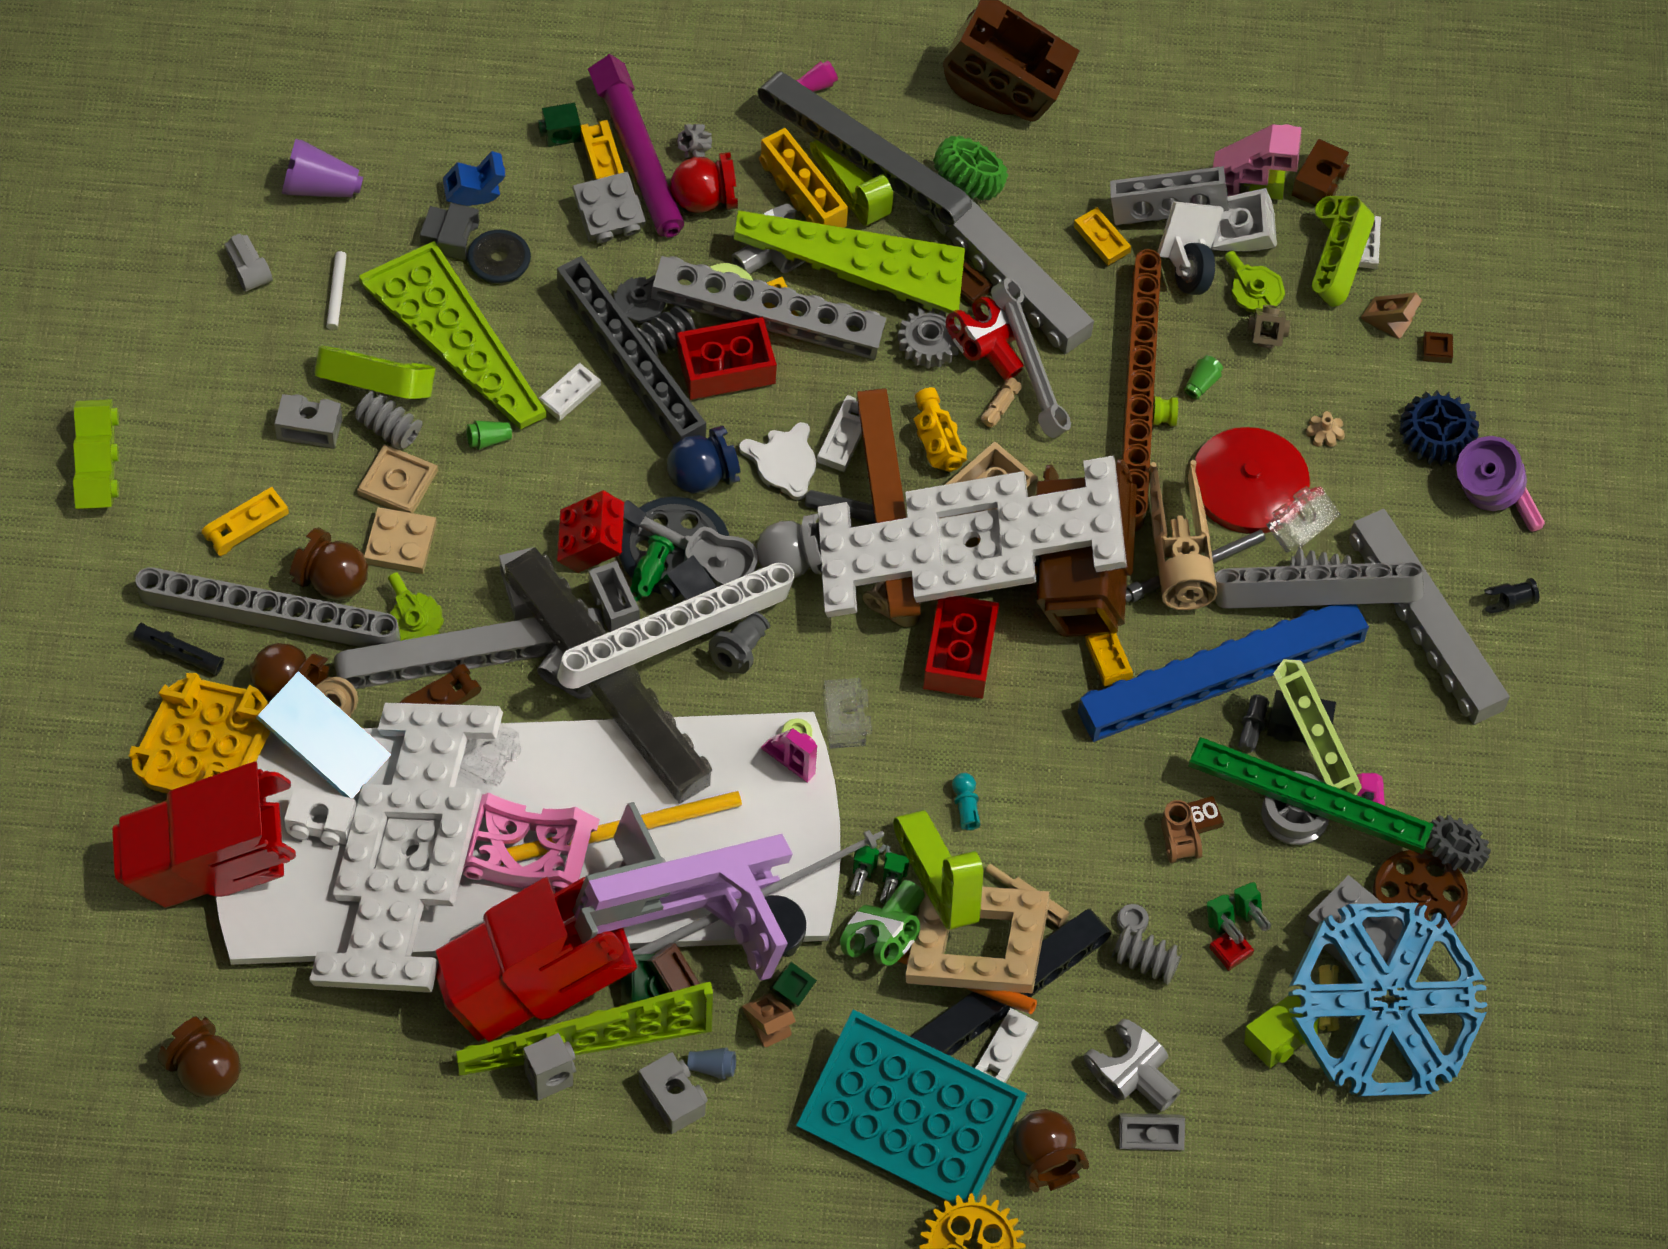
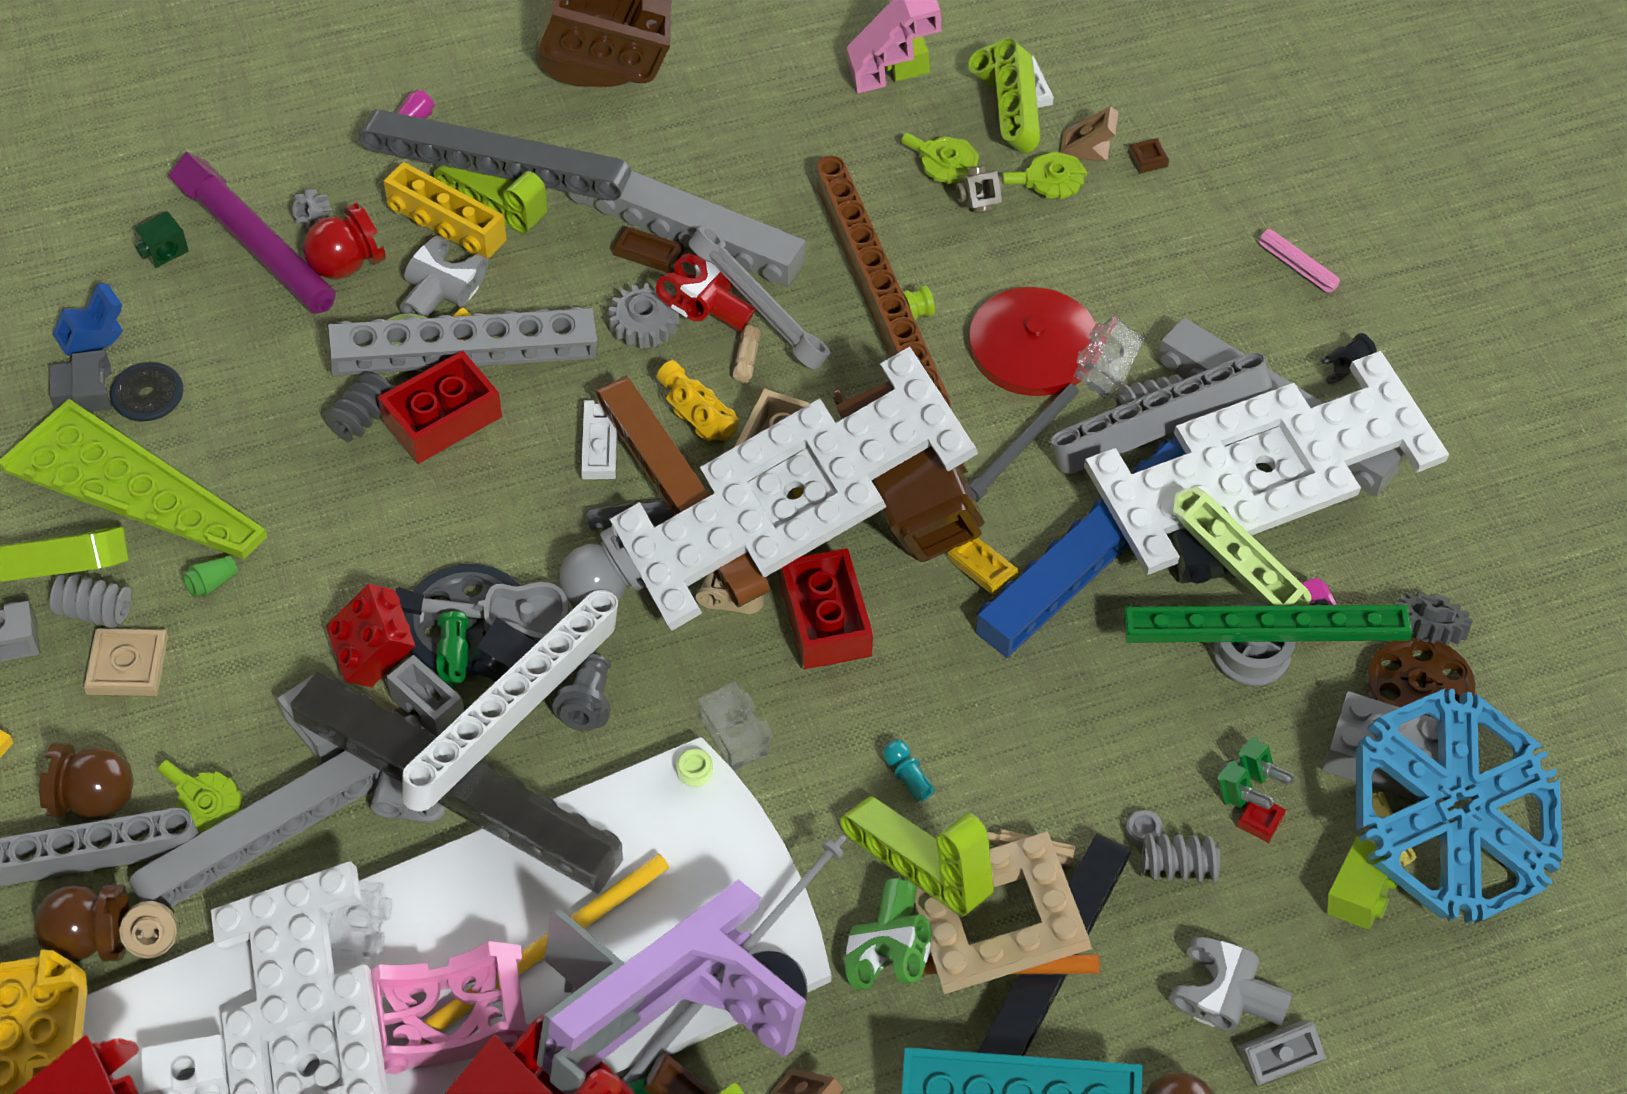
camera: 20 degrees left, 5 degrees down
(323, 736) = (153, 975): tile -> none
(400, 540) = (155, 725): tan plate -> none
(442, 690) = (271, 872): reddish brown plate -> none
(569, 391) = (283, 500): white plate -> none
(601, 150) = (219, 256): yellow plate -> none
(609, 207) = (247, 302): light grey plate -> none
(629, 351) = (336, 439): dark grey brick -> none
(636, 300) = (315, 384): dark grey piece -> none
(701, 462) = (461, 519): dark blue tile -> none
(784, 460) = (546, 490): white tile -> none
(793, 984) = (818, 1047): dark green brick -> none
(794, 751) = (703, 786): dark pink wing -> none
(867, 859) = (865, 873): green piece -> none
(900, 265) = (554, 258): lime wing -> none
(970, 167) = (611, 137): bright green gear -> none
(1008, 1045) = (1081, 1018): white plate -> none
(1102, 236) = (771, 162): yellow plate -> none
(1152, 196) = (807, 98): light grey brick -> none
(1180, 837) = (1151, 721): medium nougat piece -> none
(1187, 576) = (1026, 446): tan piece -> none
(1189, 243) = (864, 138): white plate -> none
(1204, 375) = (938, 257): bright green cone -> none
(1206, 814) = (1160, 689): reddish brown tile -> none
(1247, 224) = (900, 104): white slope -> none
(1253, 723) = (1165, 586): dark grey axle -> none
(1321, 172) = (956, 40): reddish brown brick -> none
(1325, 429) = (1082, 267): tan plant -> none
(1340, 336) = (1051, 175): none -> lime piece
(1406, 635) = (1306, 455): none -> white piece
(1446, 422) = (1189, 234): dark blue gear -> none
(1491, 473) = (1269, 248): medium lavender wheel -> none

